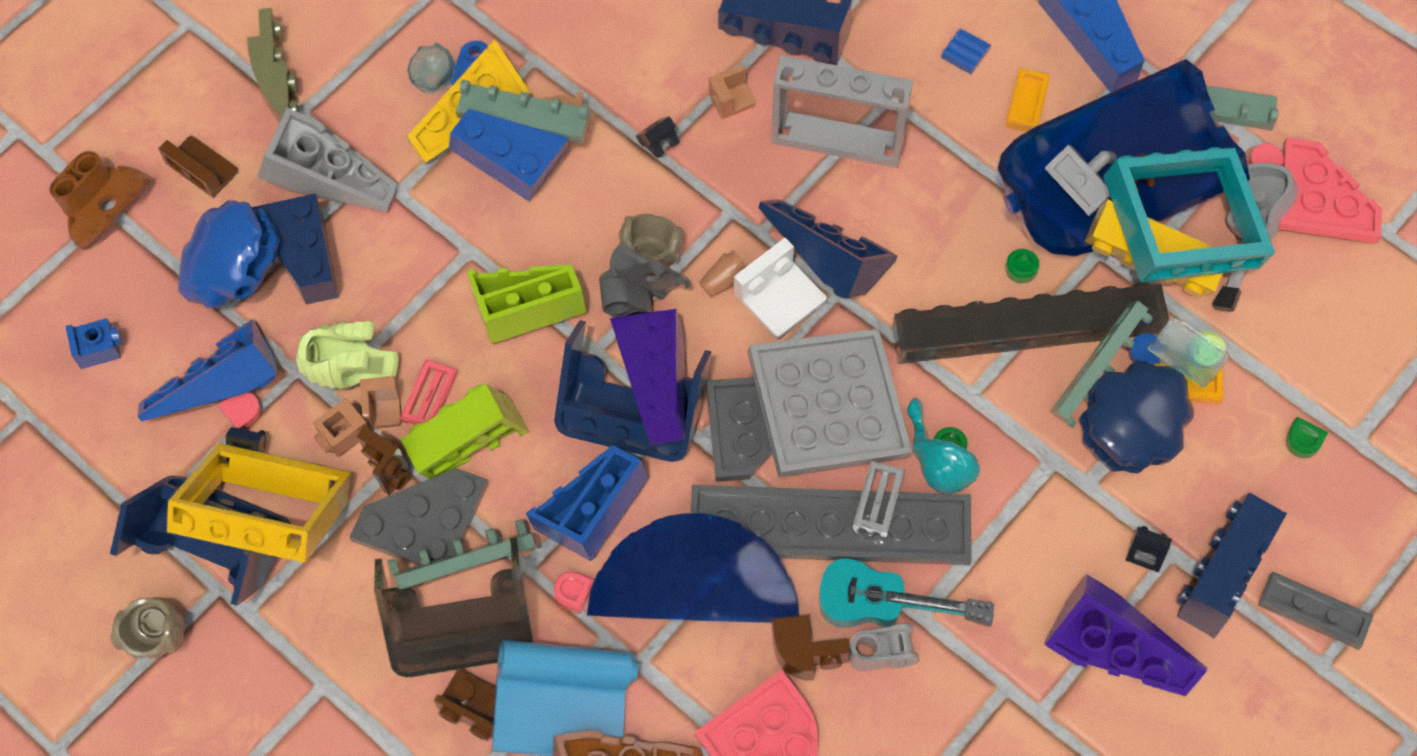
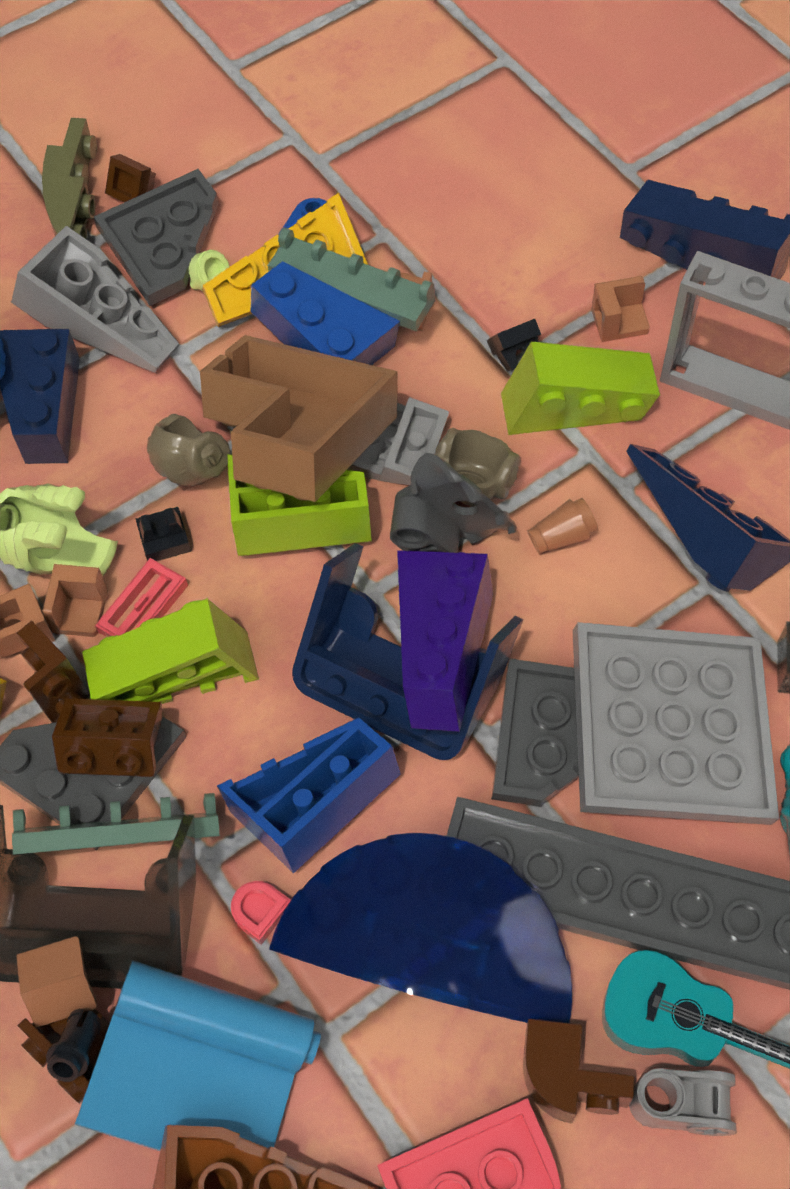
camera: 15 degrees right, 5 degrees down
(319, 54) = (128, 178): none -> reddish brown tile
(358, 94) = (161, 233): none -> dark grey plate
(404, 119) = (205, 267): none -> yellowish green tile
(429, 339) = (163, 534): none -> black tile
(431, 68) = (255, 218): clear light blue hair -> none
(432, 274) = (185, 453): none -> dark tan hair
(437, 496) = (107, 737): none -> reddish brown bracket
(452, 666) = (54, 981): none -> nougat panel
(477, 709) = (69, 1055): none -> black pin
(516, 224) = (296, 413): none -> medium nougat piece
(583, 230) = (403, 443): none -> light grey slope
(712, 164) = (577, 388): none -> lime wedge
(777, 290) = (630, 560): white bracket -> none
(871, 525) = (700, 910): light grey tile -> none

